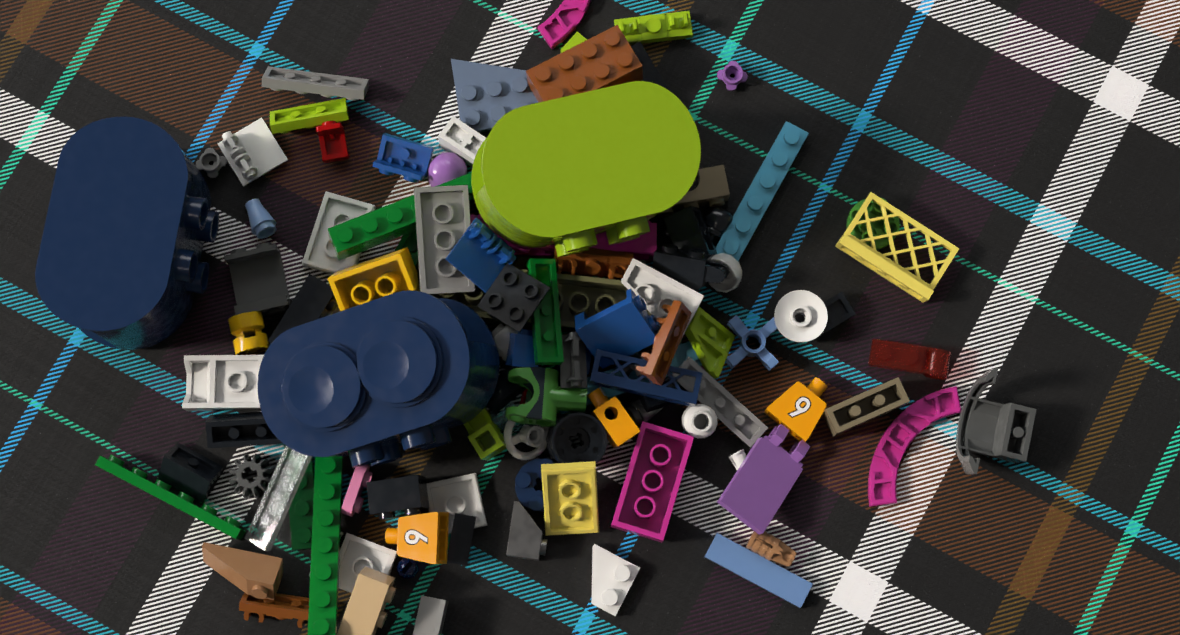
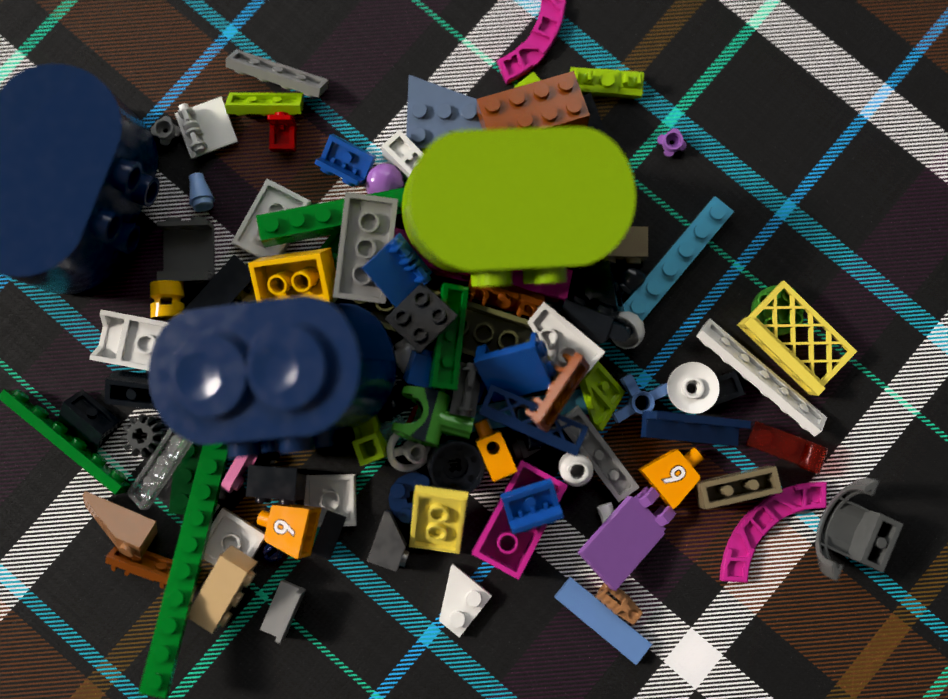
camera: 10 degrees right, 5 degrees up
(661, 462) = (532, 506): none -> blue bracket
(808, 356) = (692, 428): none -> dark blue fence
(869, 293) = (762, 377): none -> white plate

